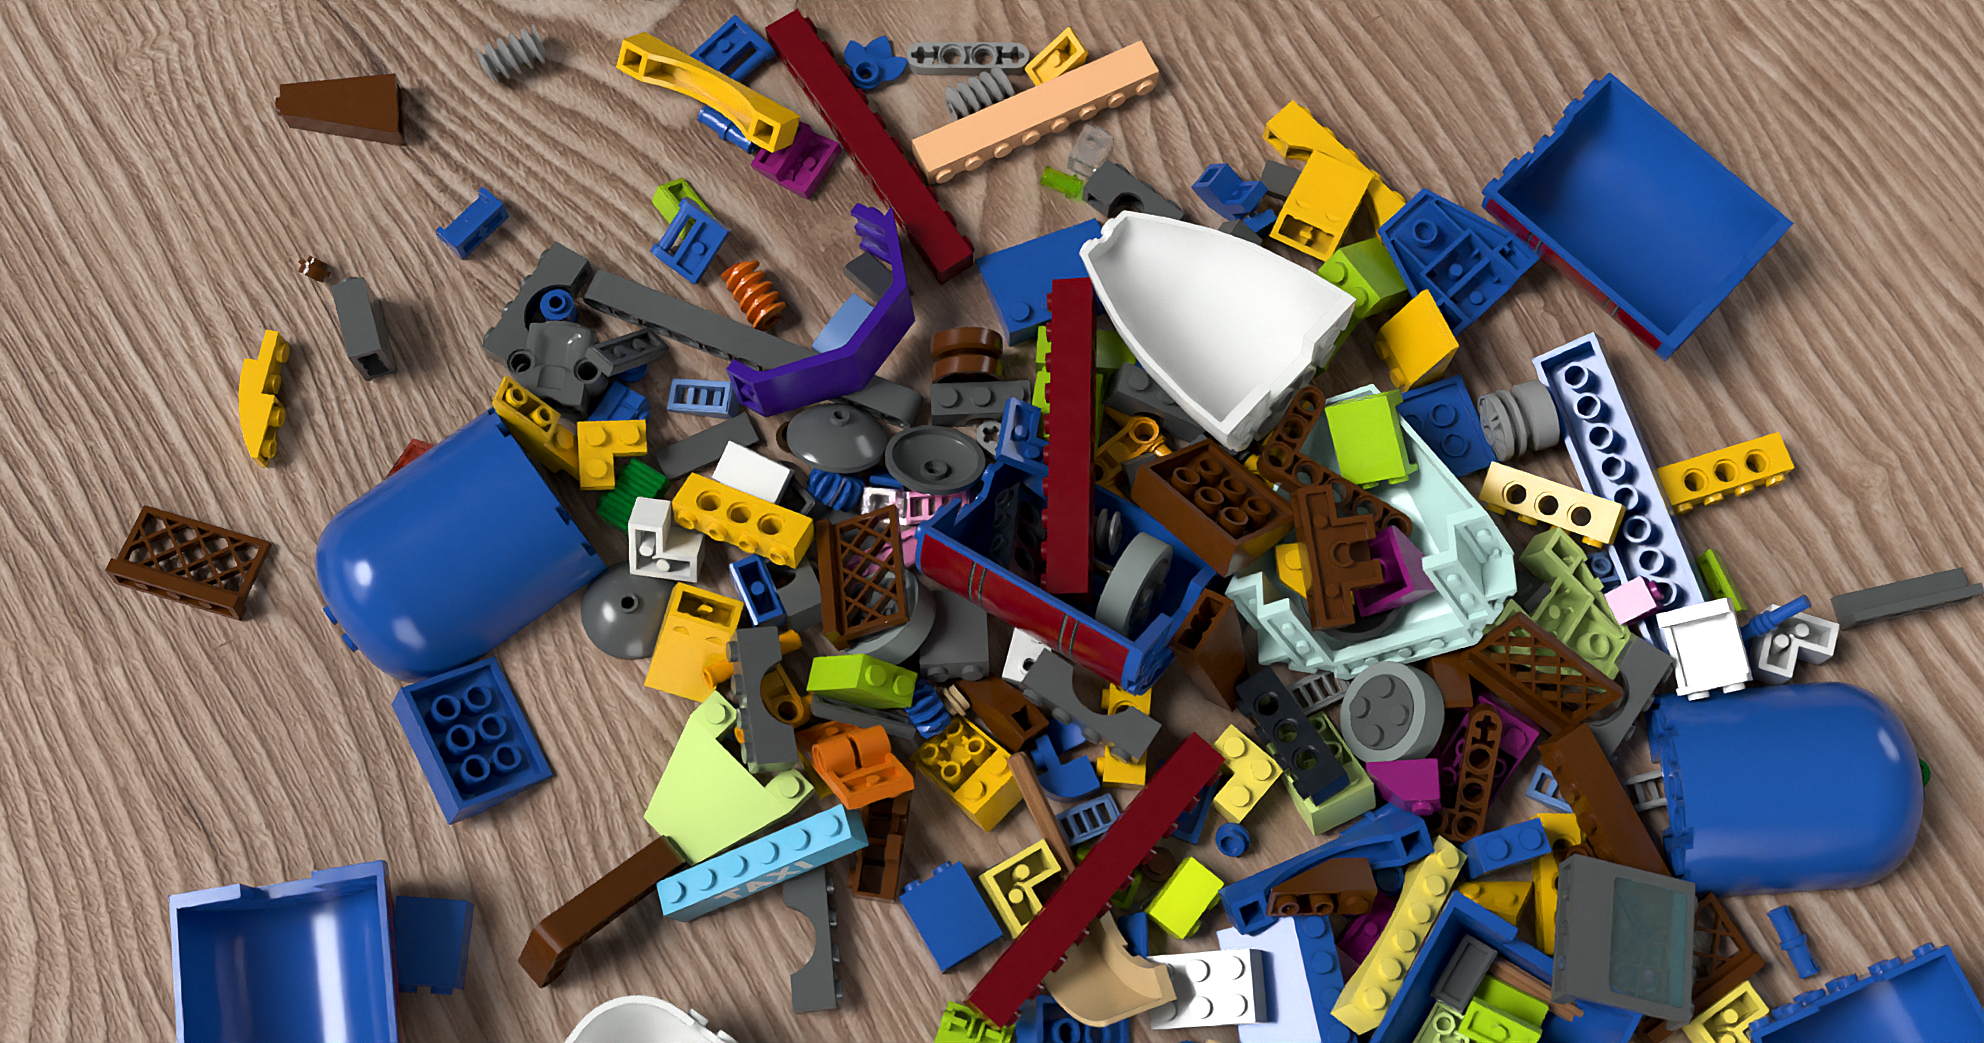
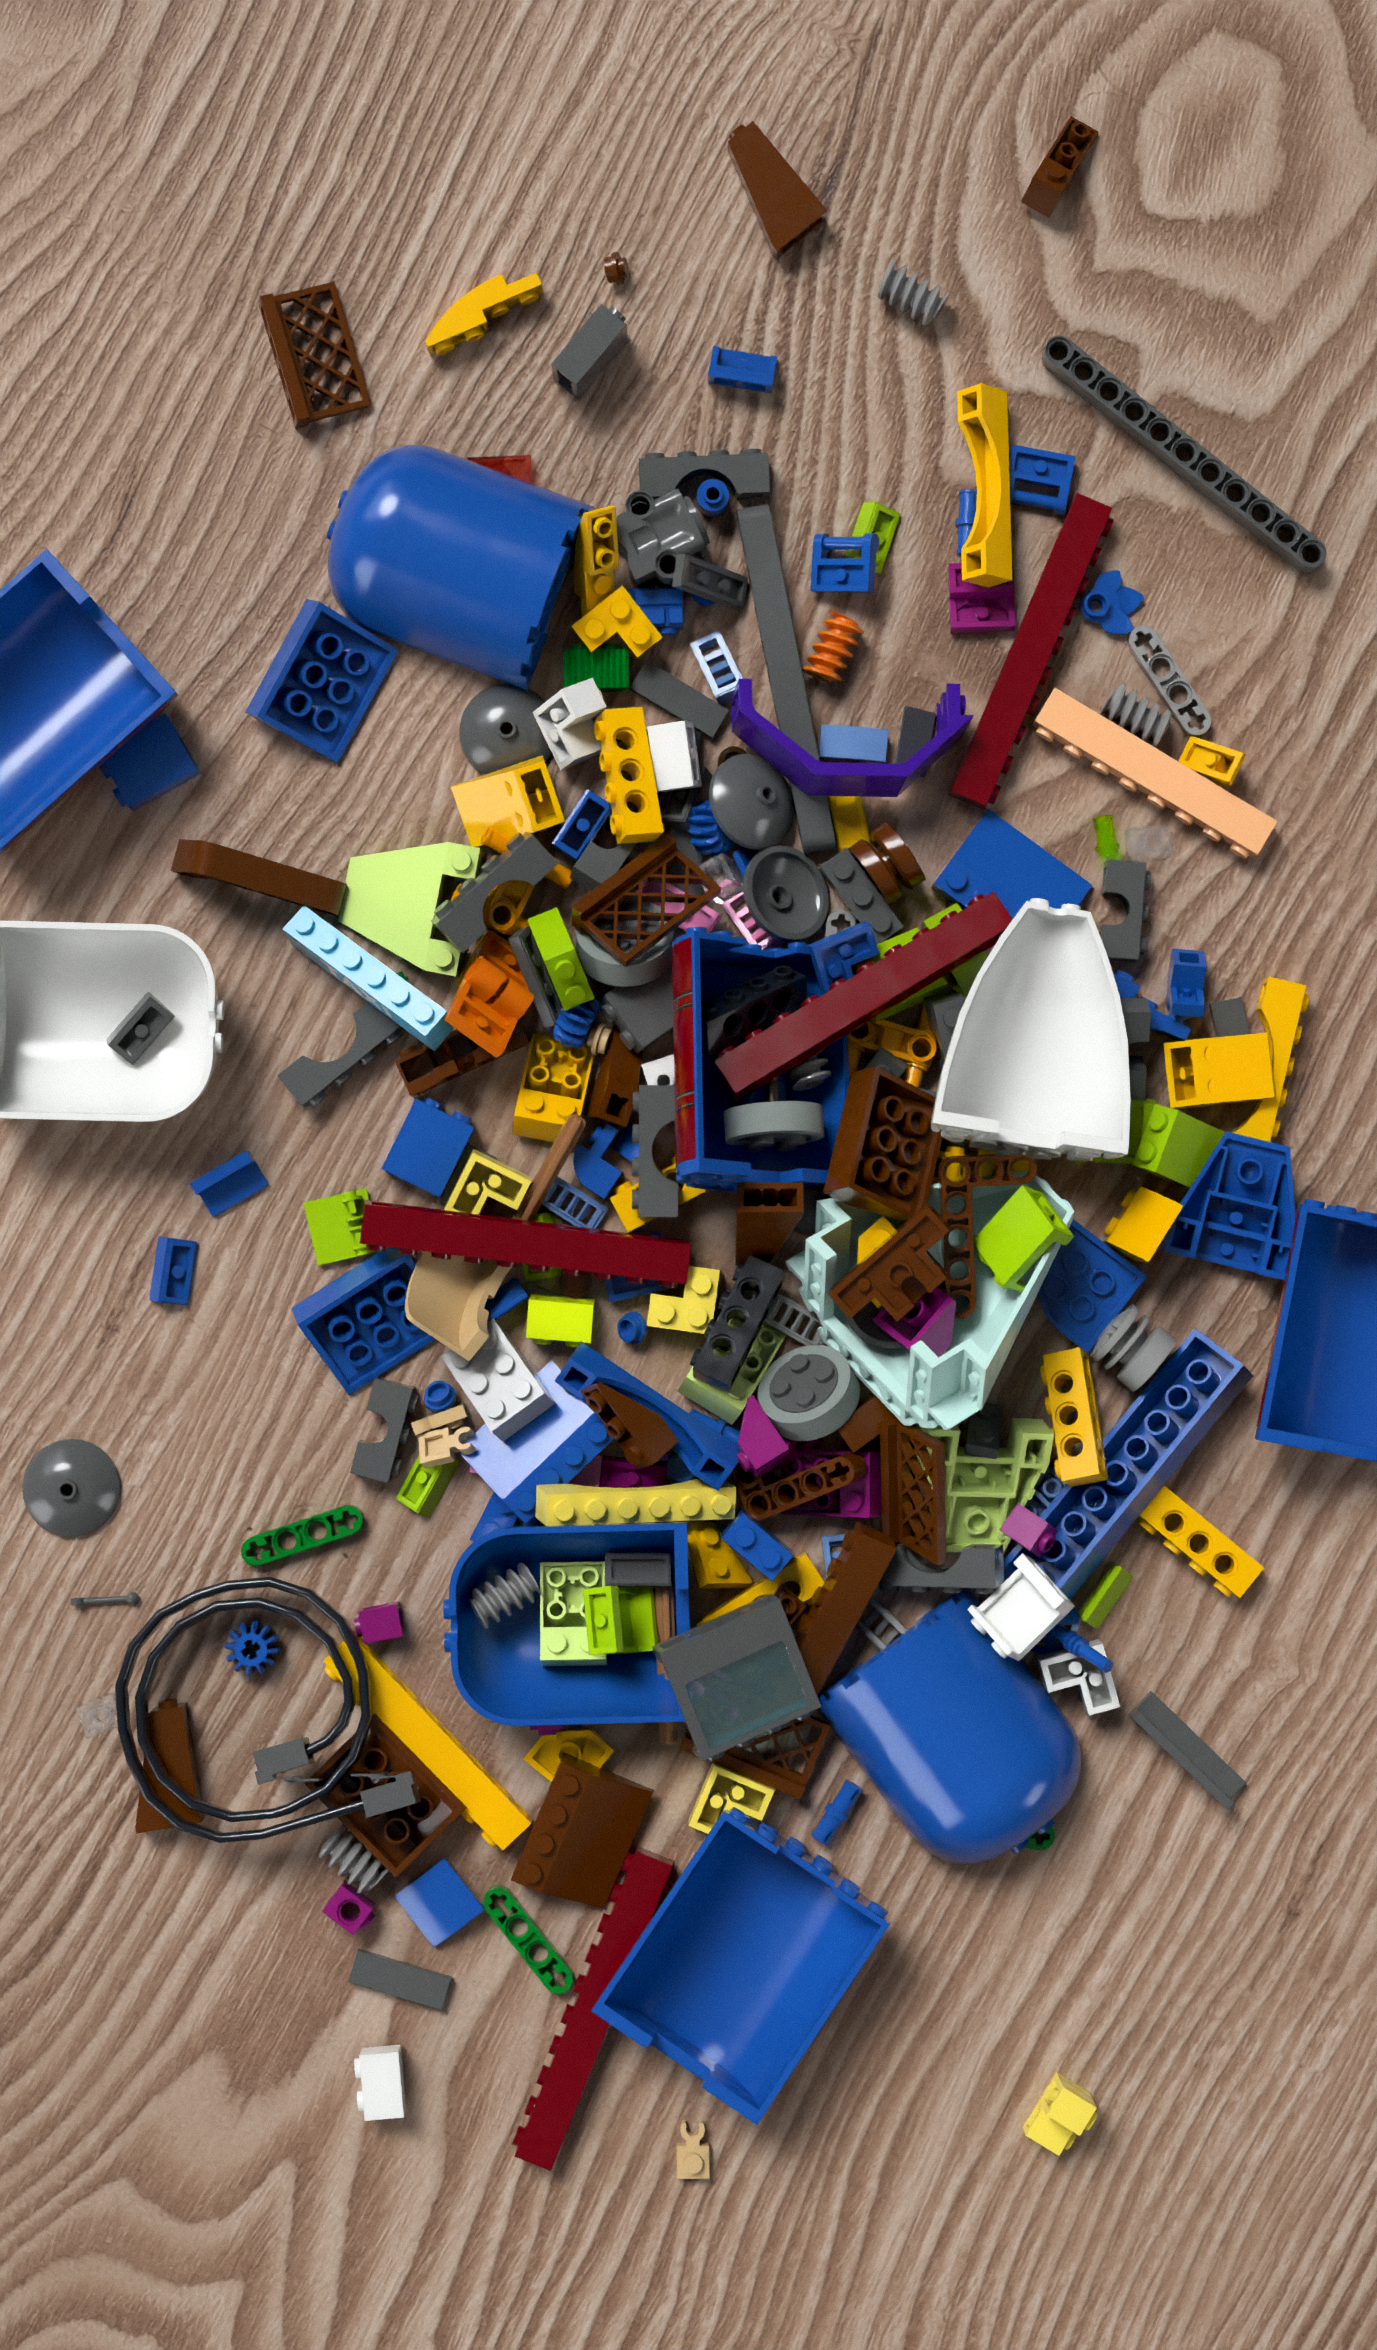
camera: 55 degrees right, 15 degrees up
(907, 373) = (848, 820): none -> yellow tile

